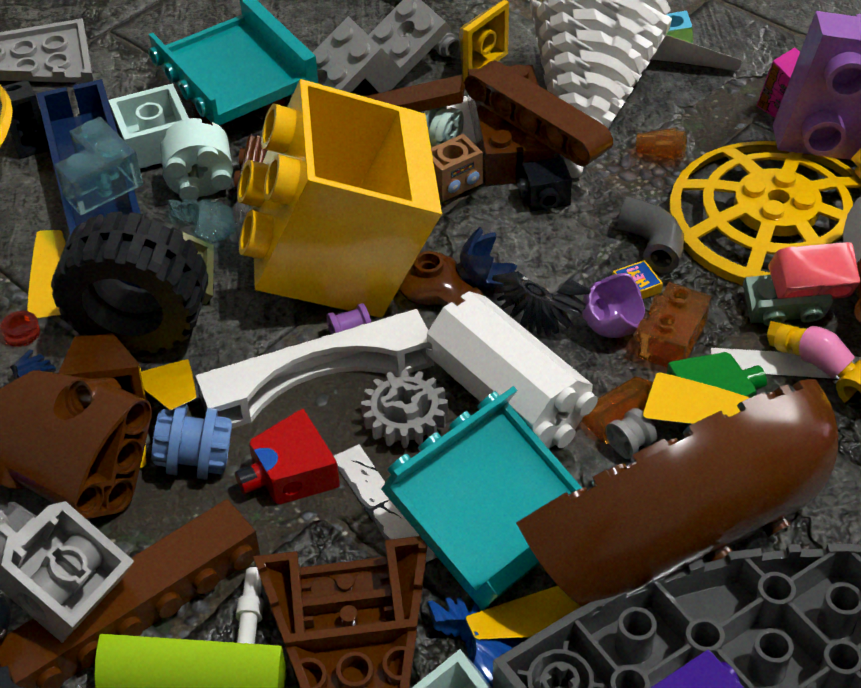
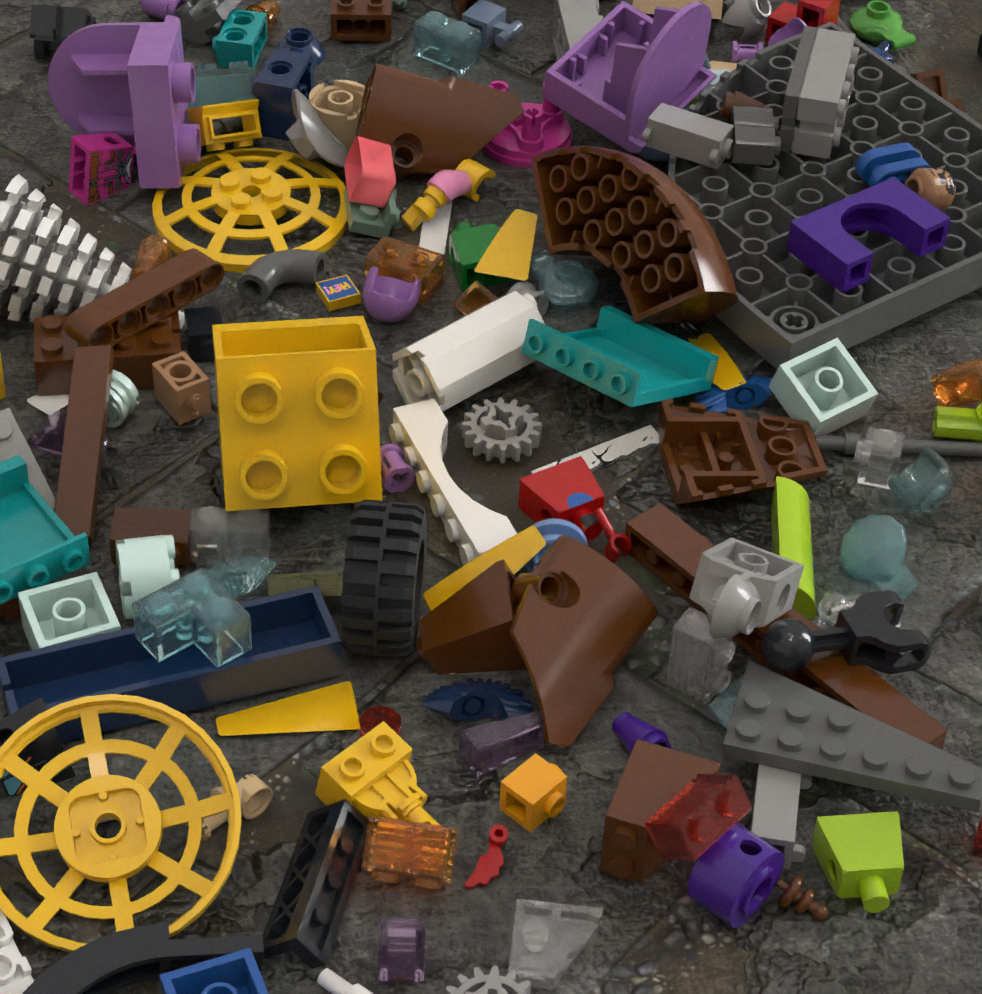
camera: 95 degrees left, 5 degrees down
(230, 493) = (615, 540): none -> red hand
(249, 607) = (723, 525): white bar -> none
(539, 306) = (385, 331): black hair -> none

